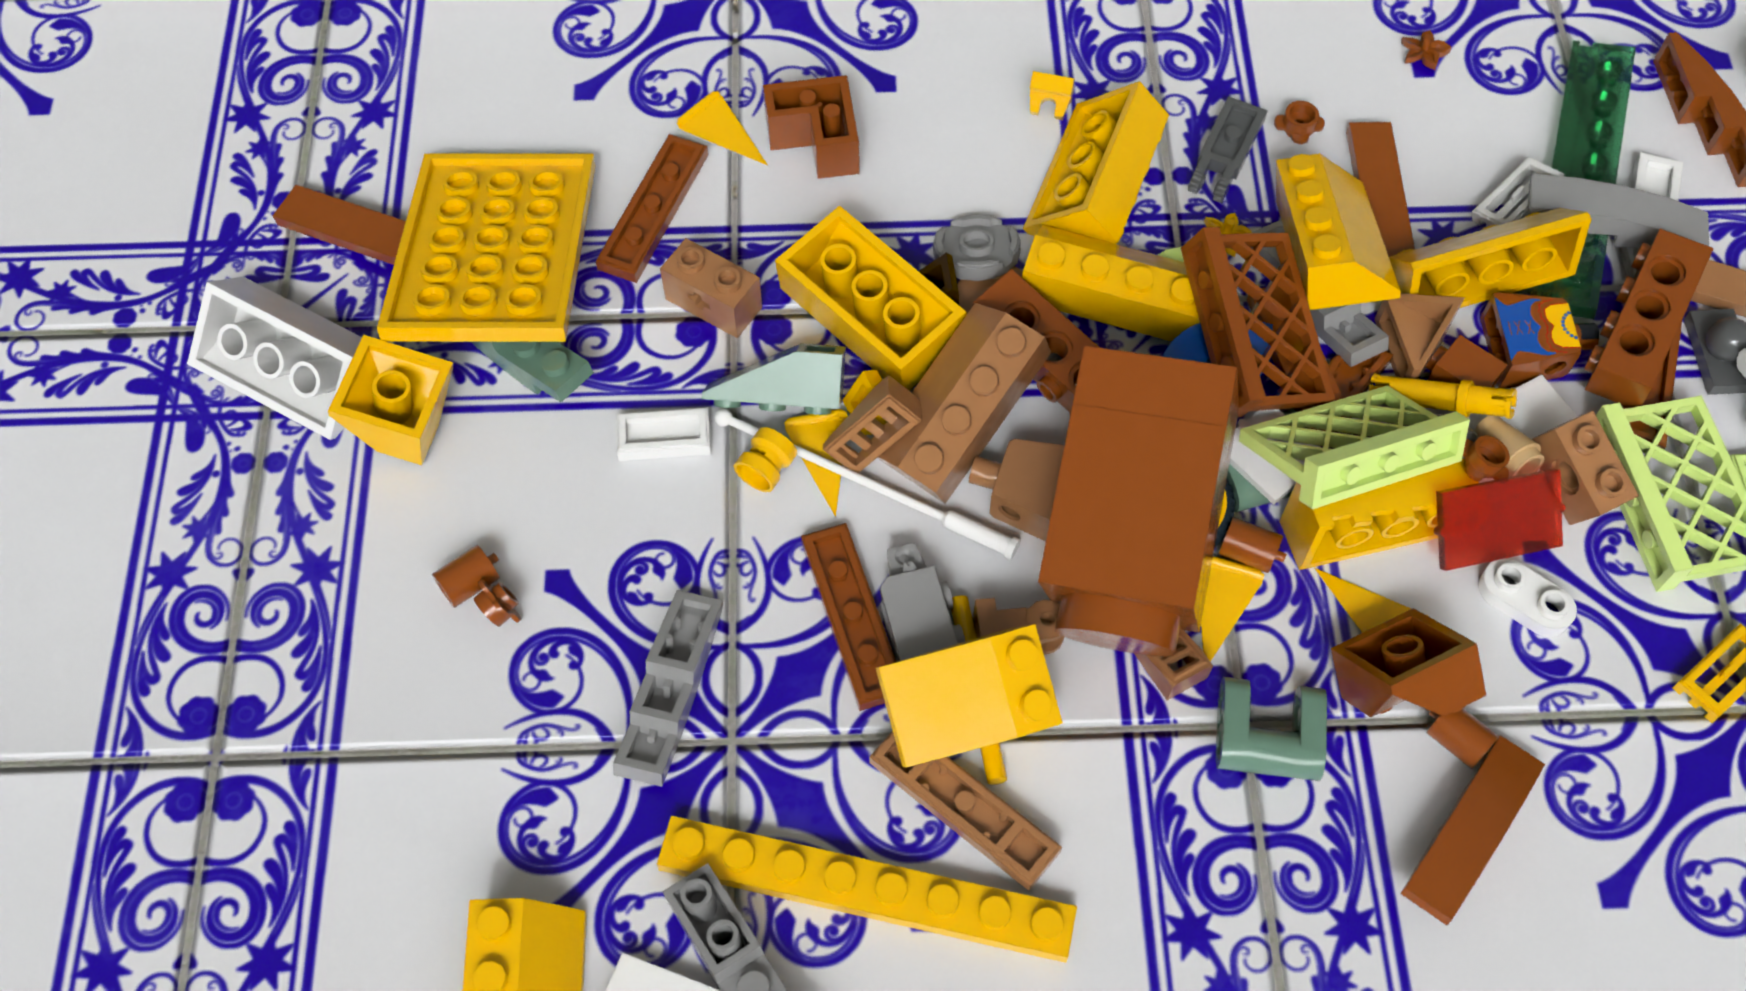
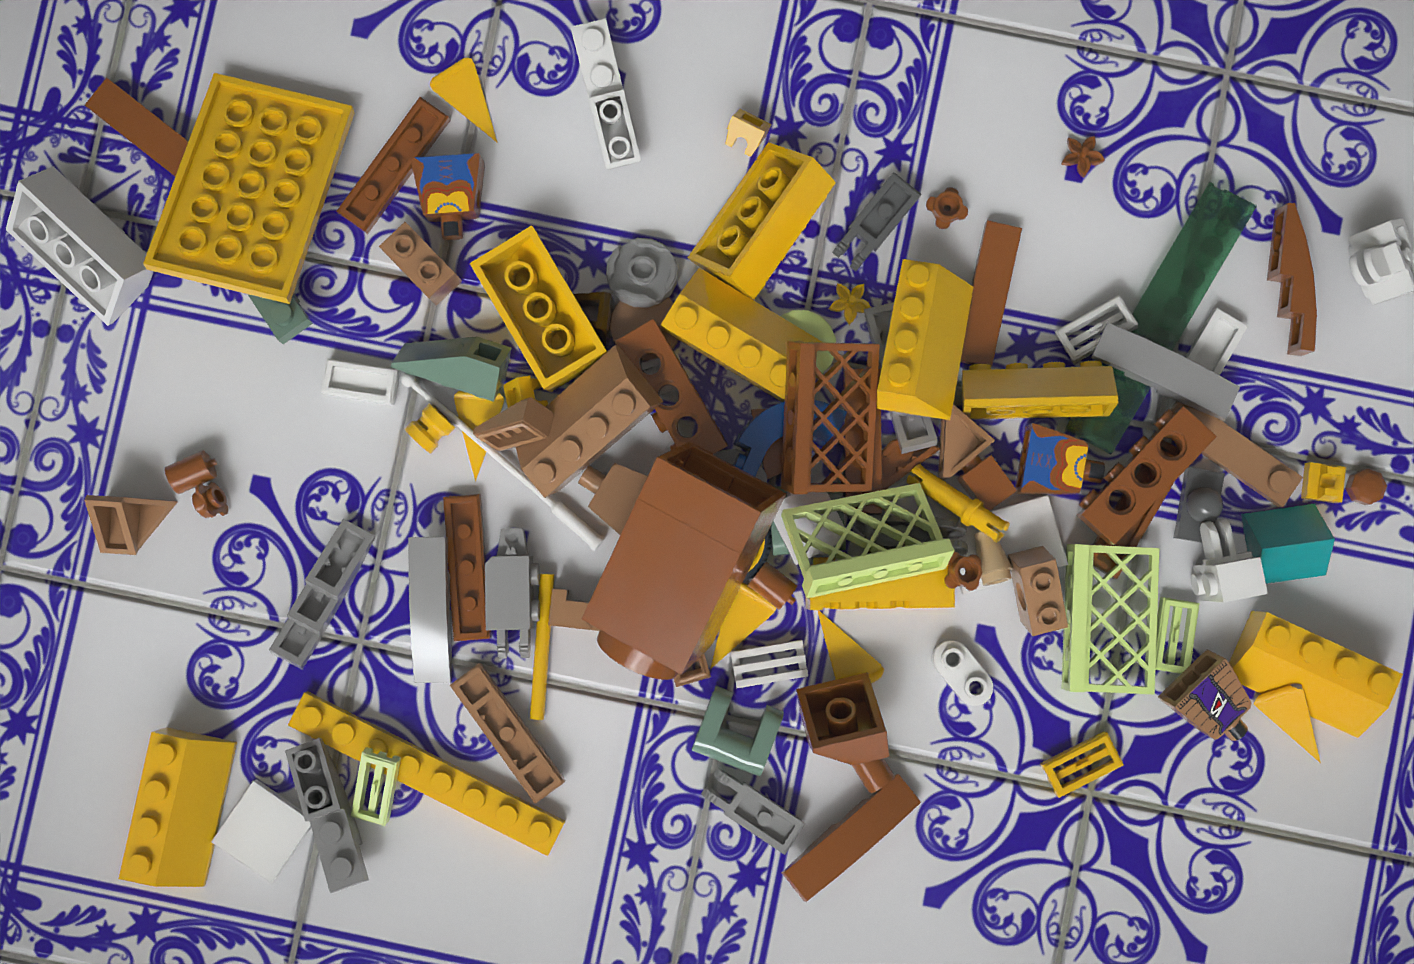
camera: 15 degrees right, 25 degrees up
(386, 649) = (124, 522): none -> medium nougat slope
(392, 398) = (152, 314): yellow slope -> none
(725, 210) = (449, 190): none -> torso
(801, 868) = (381, 762): none -> yellowish green tile
(817, 116) = (543, 114): dark orange brick -> none
(820, 669) = (430, 609): none -> light grey slope
(880, 89) = (605, 93): none -> white slope
(969, 695) = (524, 667): yellow slope -> none
(1270, 625) = (739, 669): none -> white tile
(1332, 829) = (756, 812): none -> light grey hinge
(1499, 519) = (959, 616): clear red piece -> none

